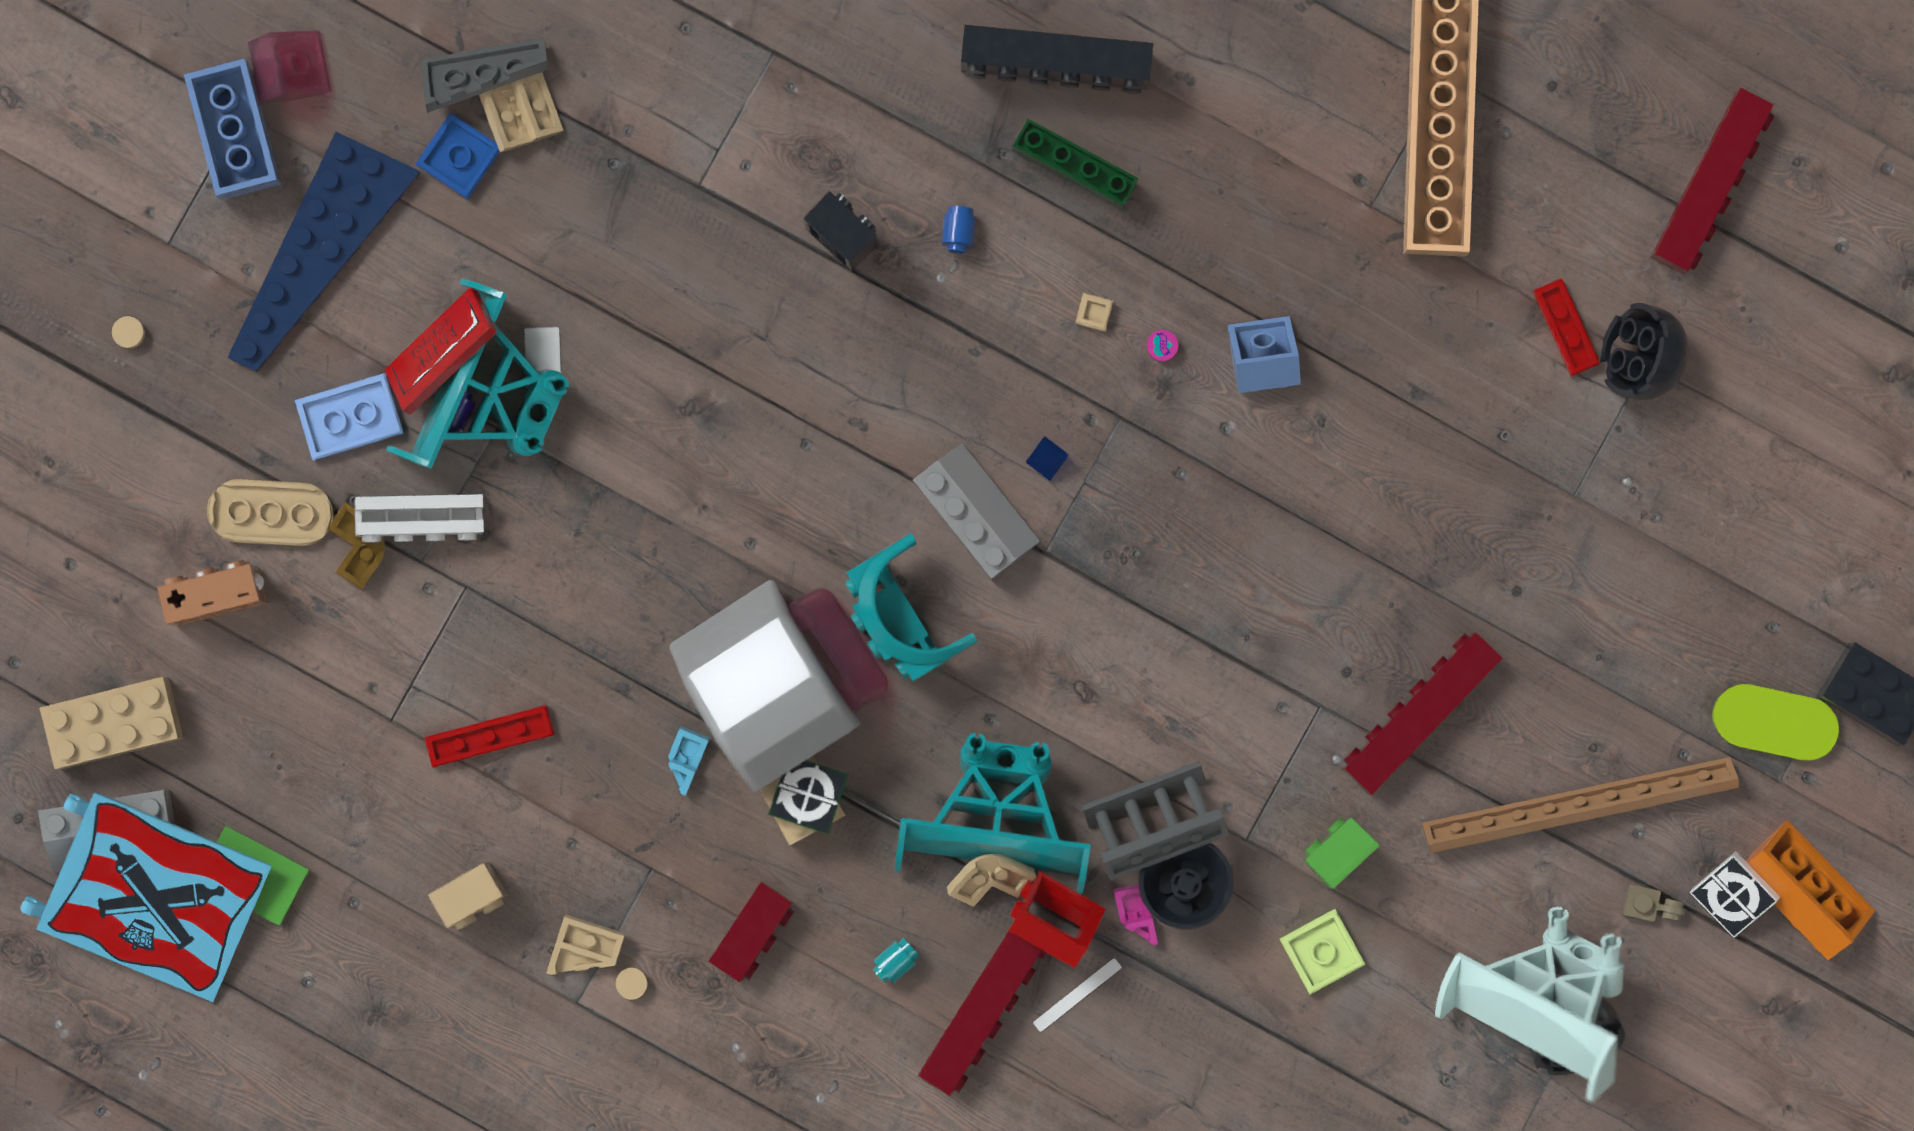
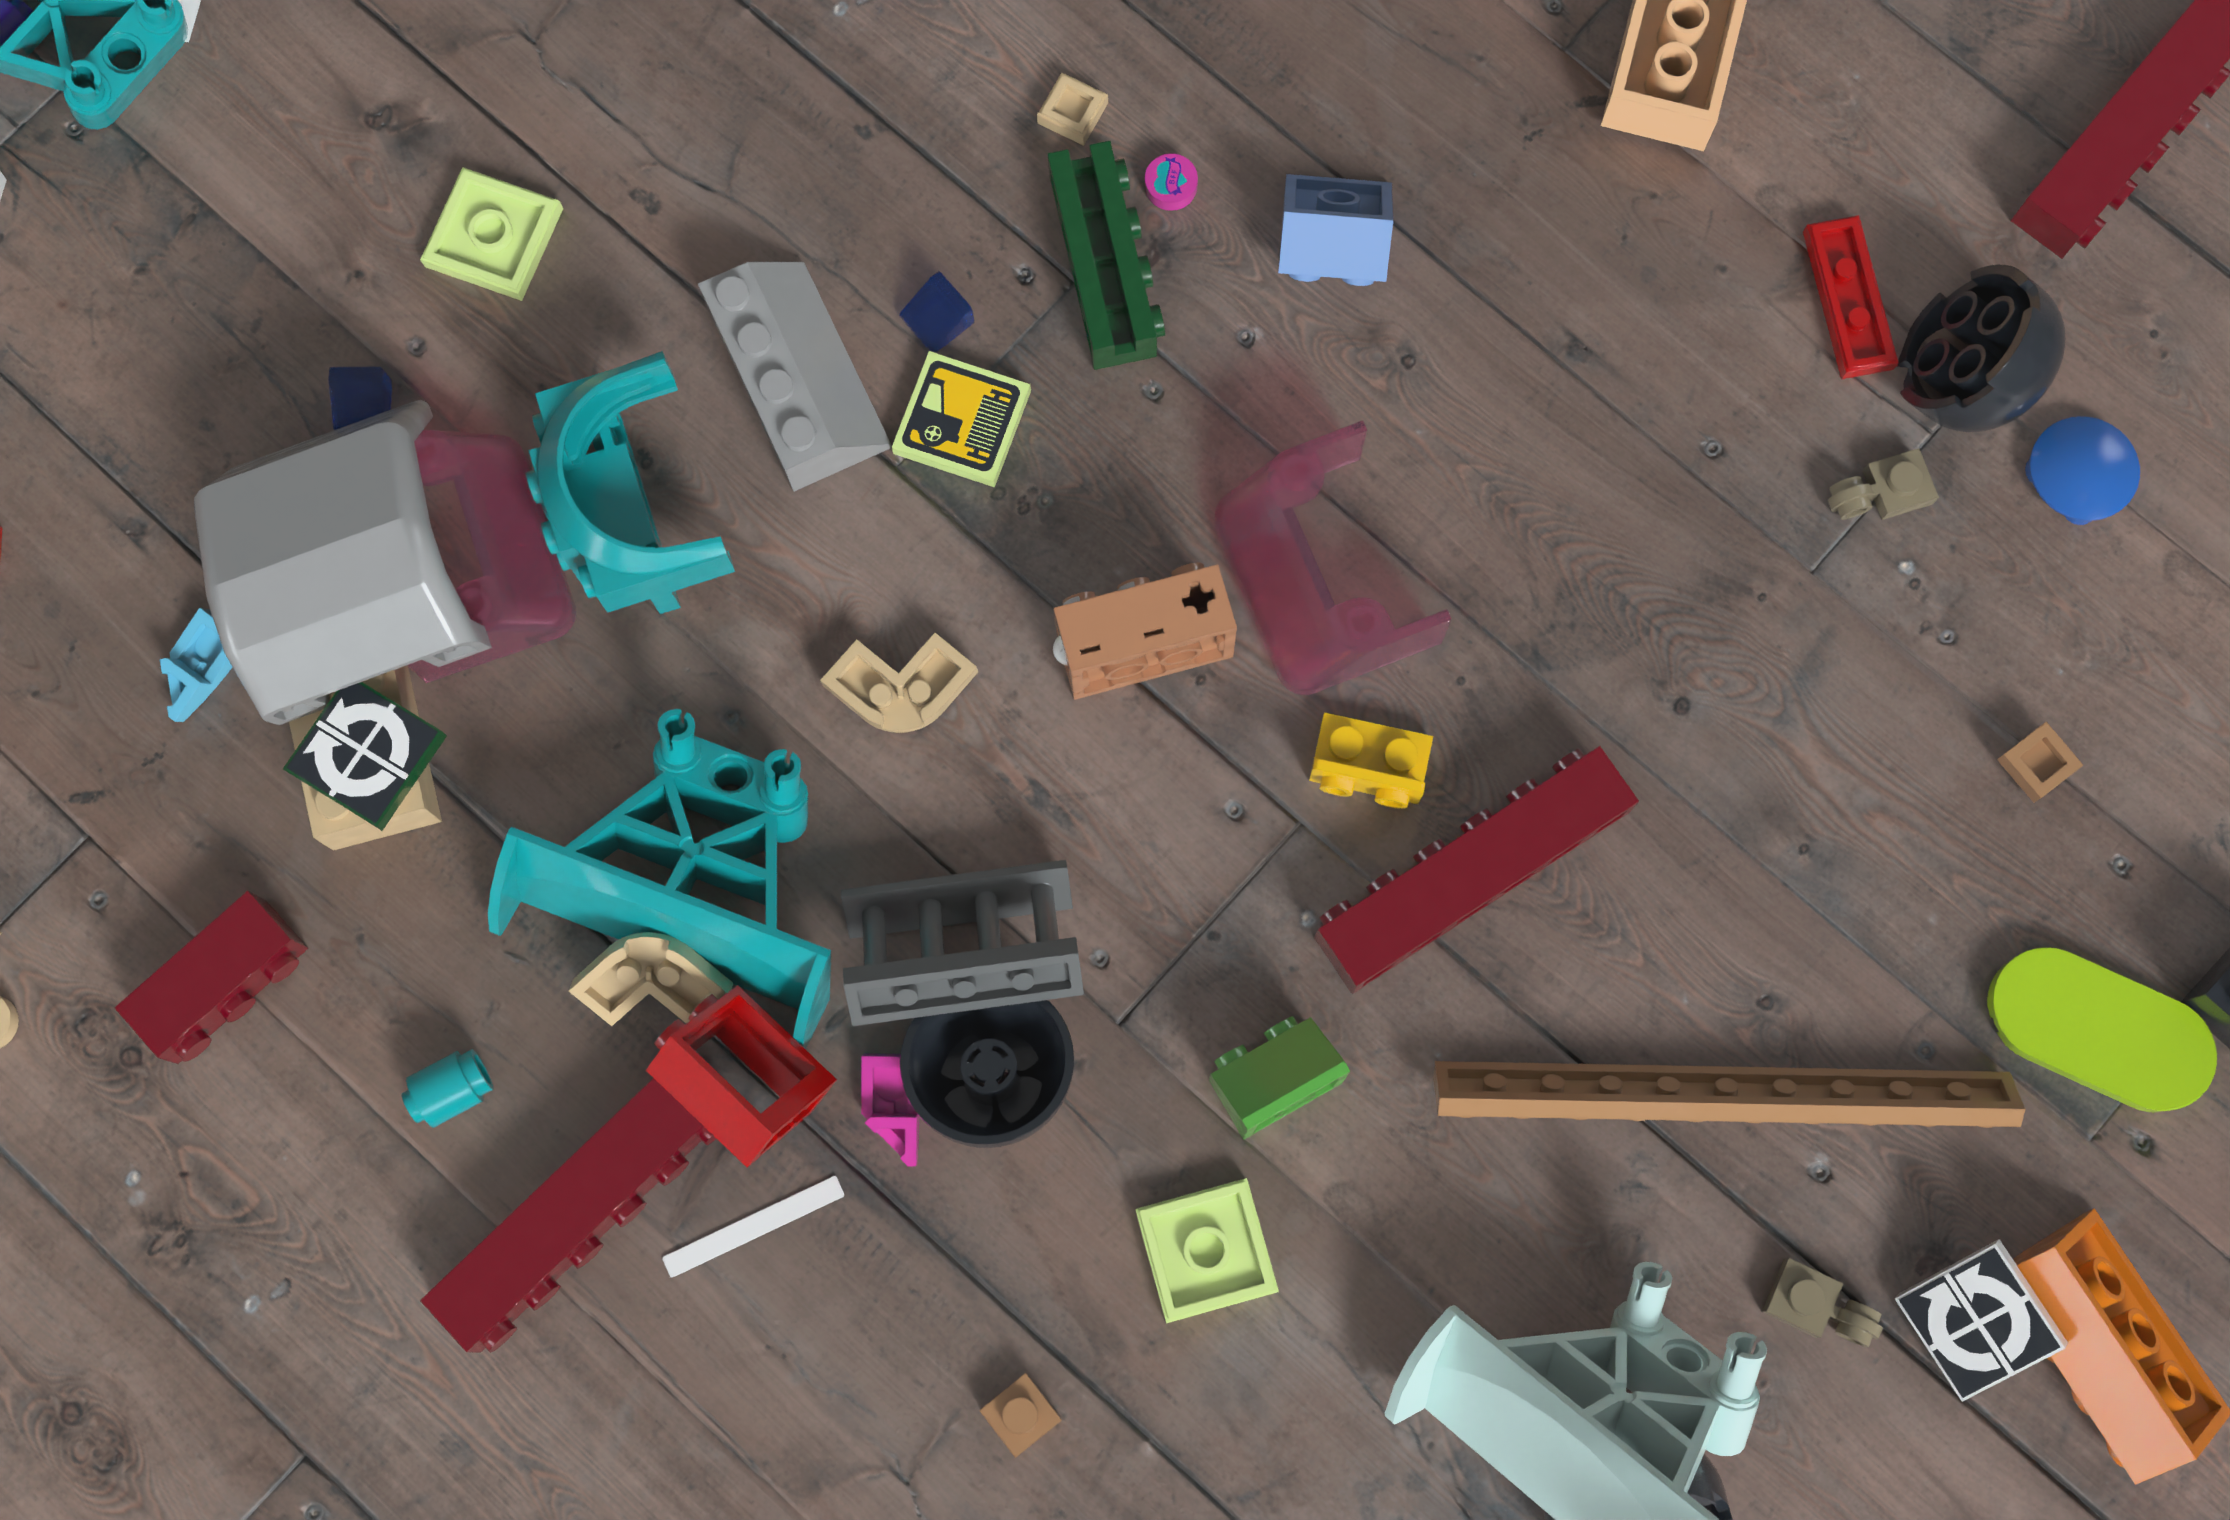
camera: 15 degrees right, 10 degrees down
(731, 585) = (358, 394): none -> clear blue slope
(776, 466) = (492, 233): none -> yellowish green tile
(1077, 517) = (961, 419): none -> tile
(1084, 690) = (901, 699): none -> tan plate
(1135, 403) = (1104, 257): none -> dark green brick
(1211, 623) = (1144, 630): none -> nougat piece
(1244, 1059) = (1020, 1415): none -> medium nougat plate
(1280, 574) = (1295, 614): none -> clear pink windscreen
(1351, 663) = (1371, 760): none -> yellow bracket
(1611, 435) = (1894, 484): none -> dark tan plate
(1715, 402) = (2084, 469): none -> blue dish
(1717, 581) = (2040, 762): none -> medium nougat plate

